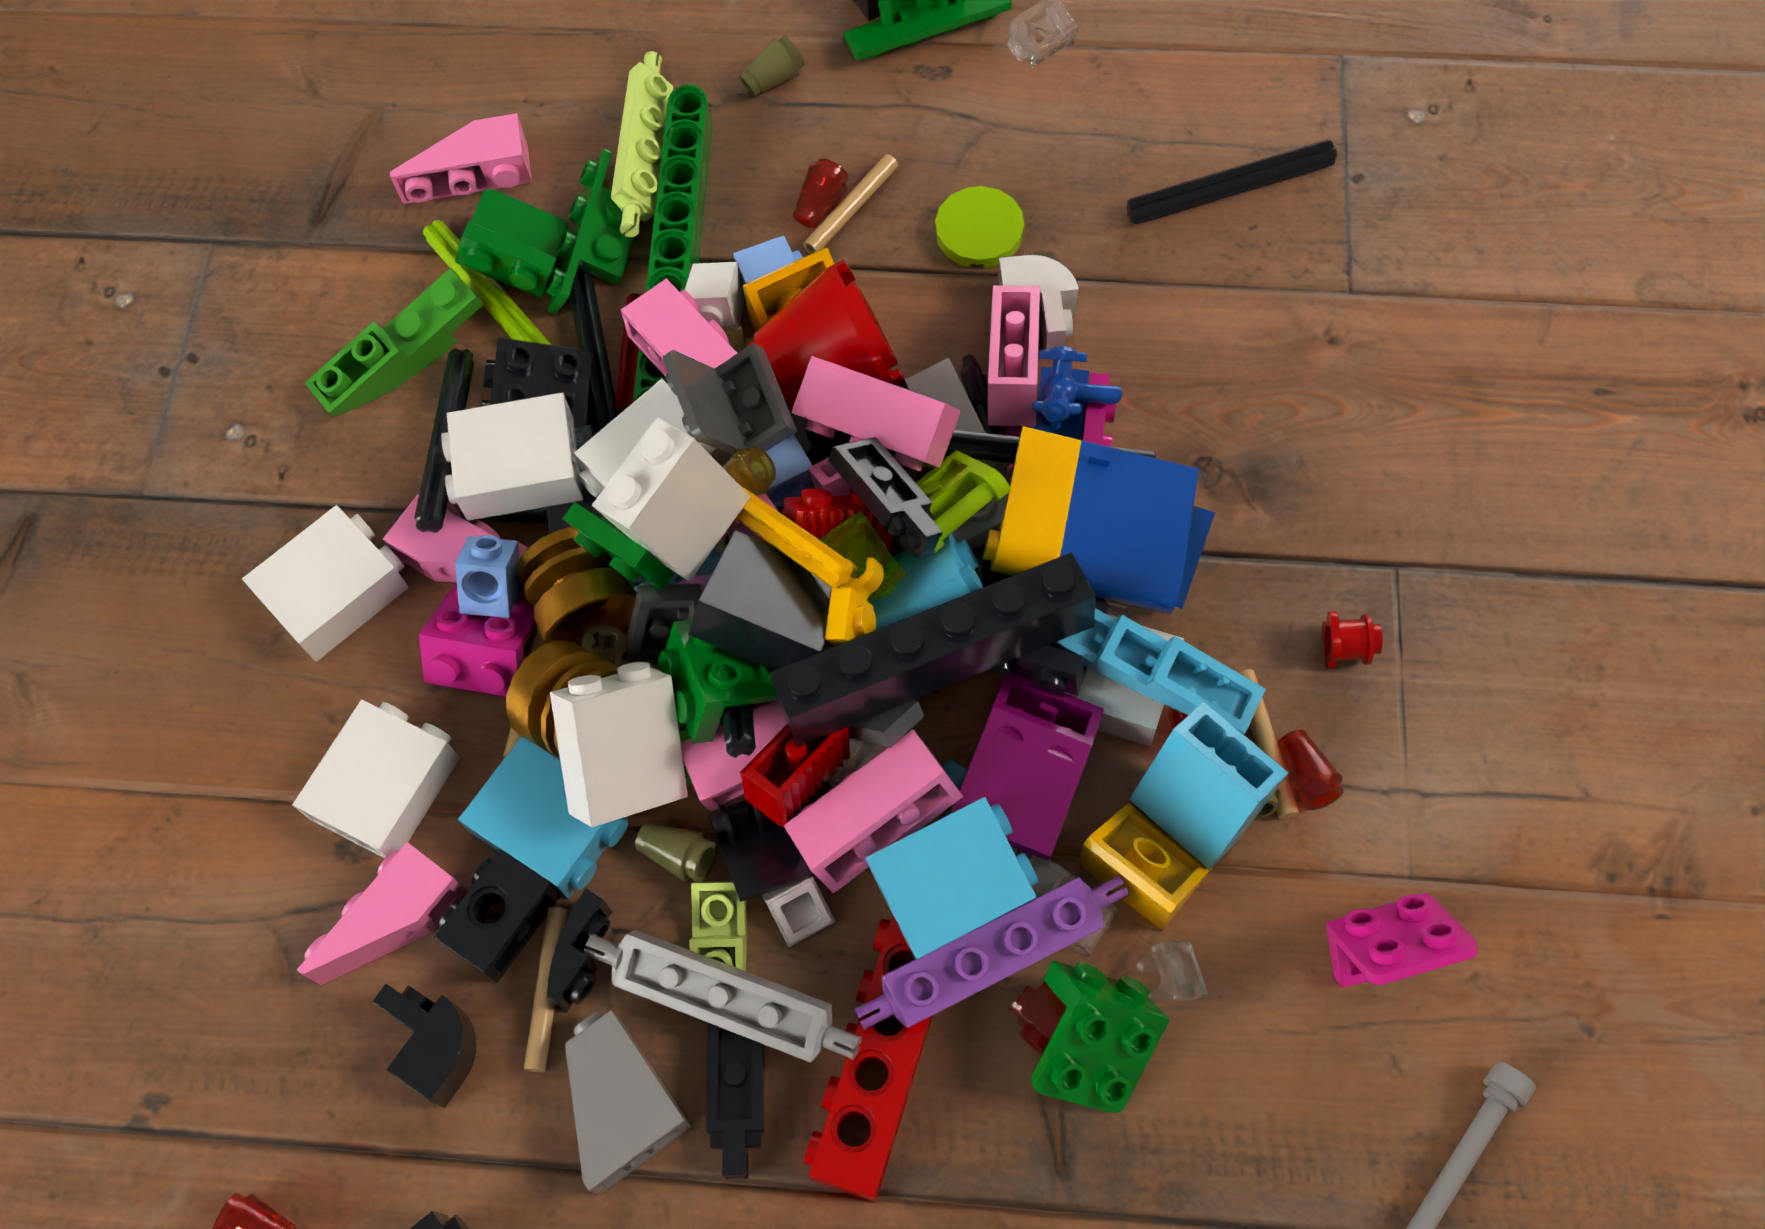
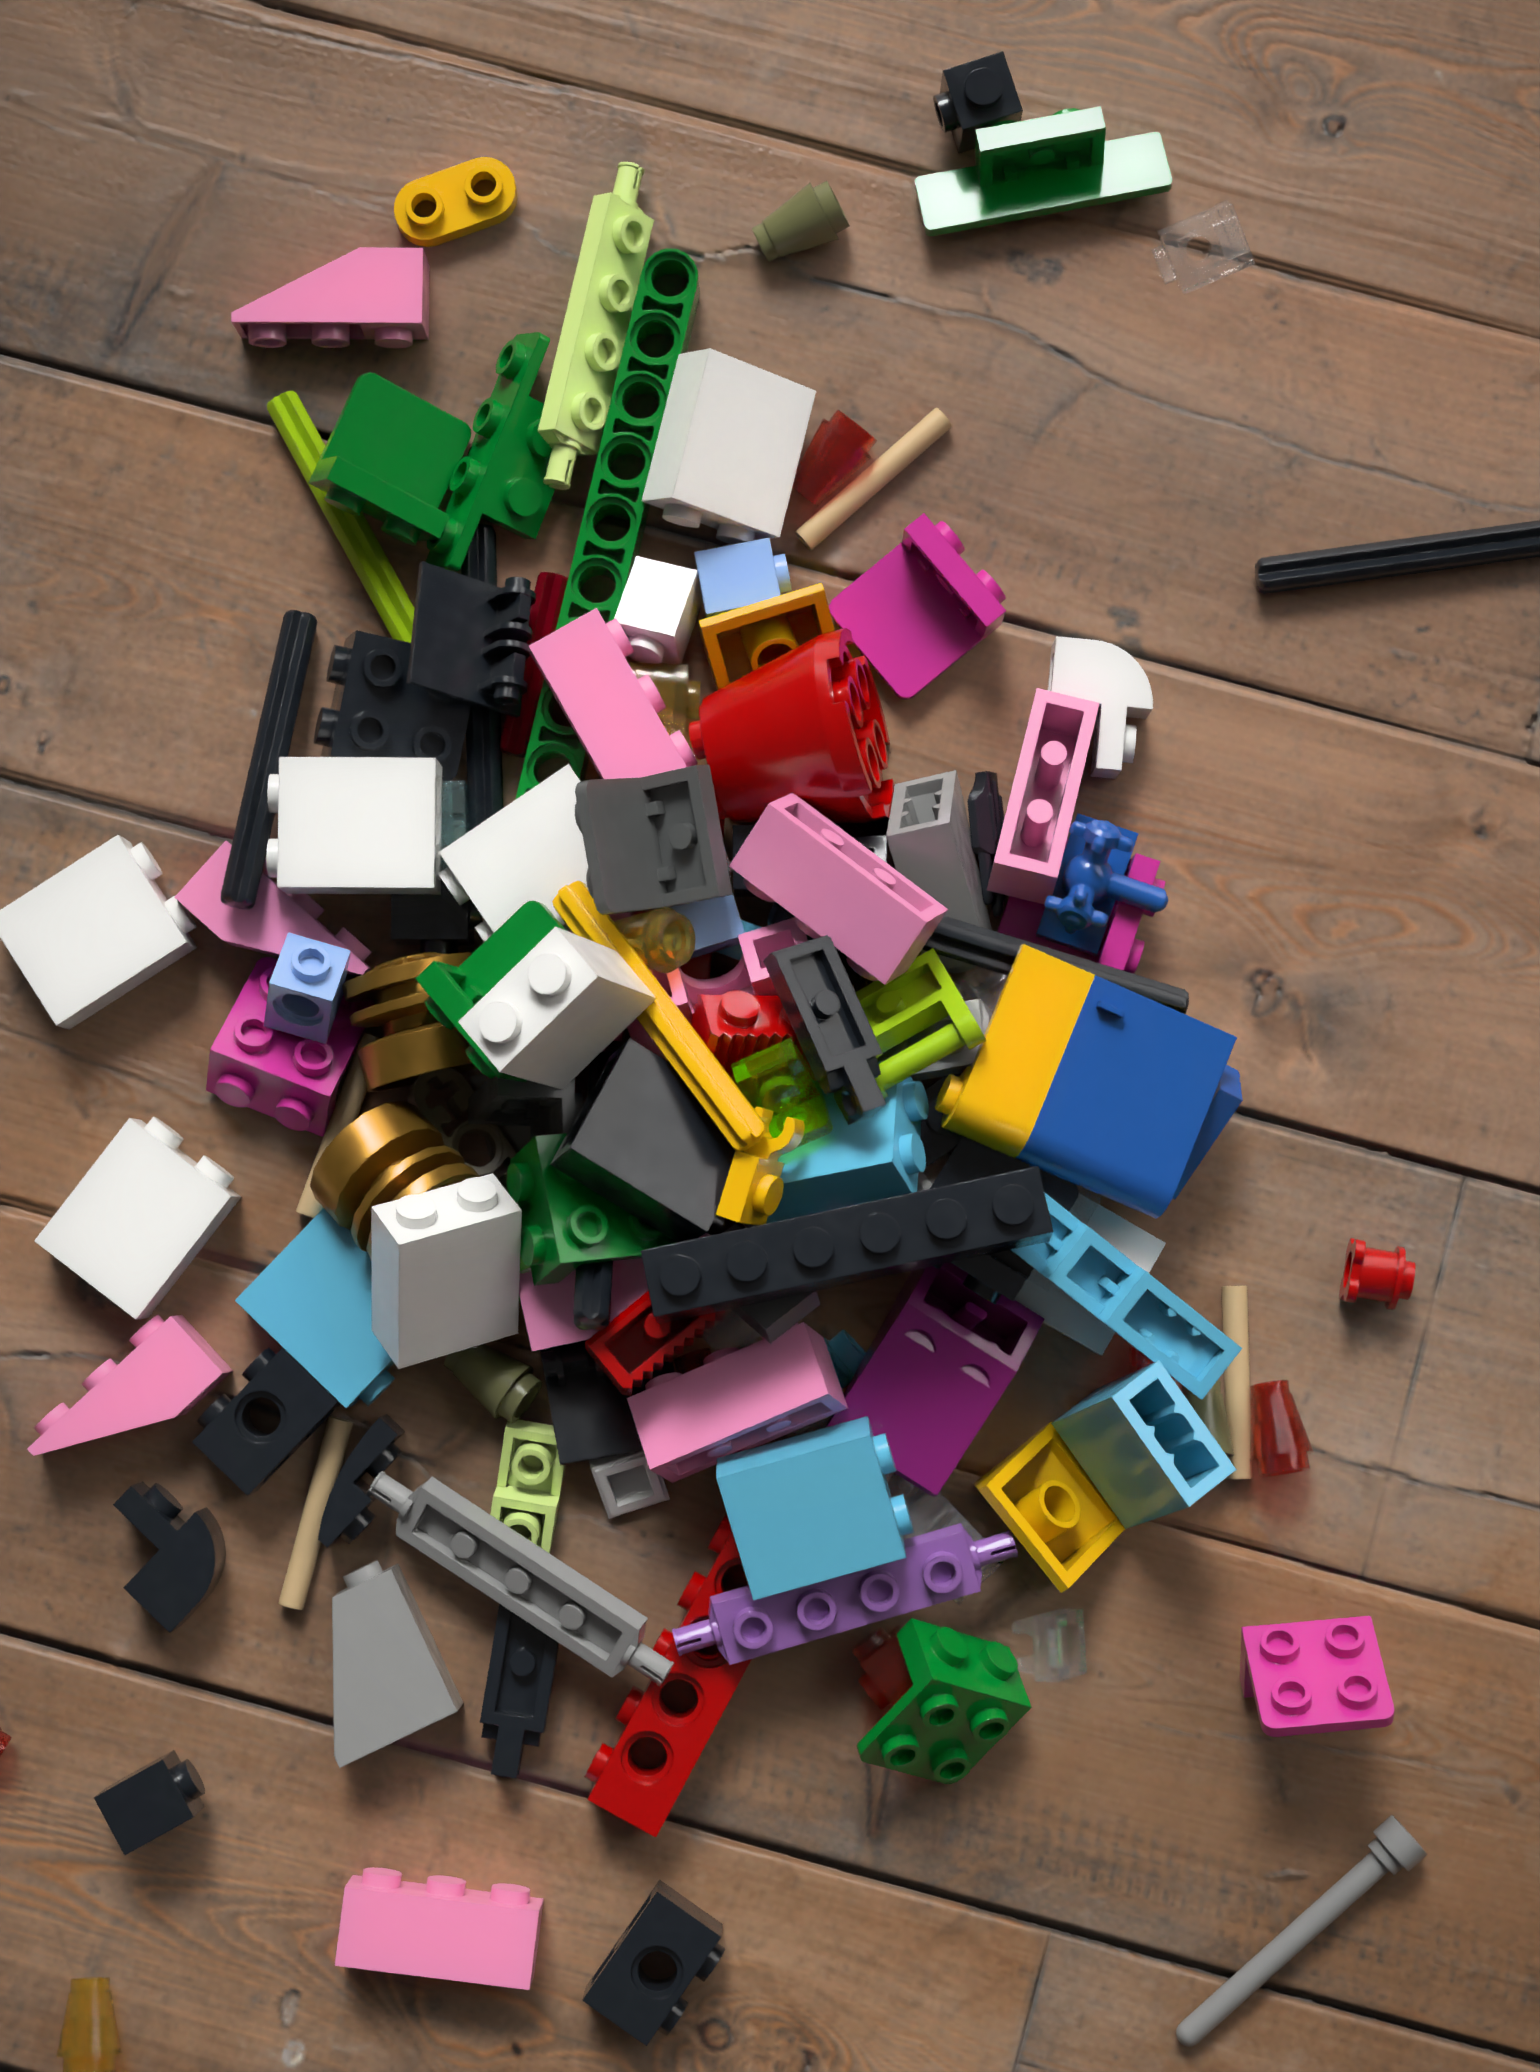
camera: 10 degrees right, 20 degrees up
(391, 355) = (215, 593): bright green slope -> none
(541, 98) = (457, 206): none -> yellow plate
(583, 330) = (471, 638): none -> black hinge
(744, 186) = (728, 447): none -> white brick
(905, 263) = (919, 608): none -> dark pink bracket
(979, 226) = (1045, 554): lime tile -> none

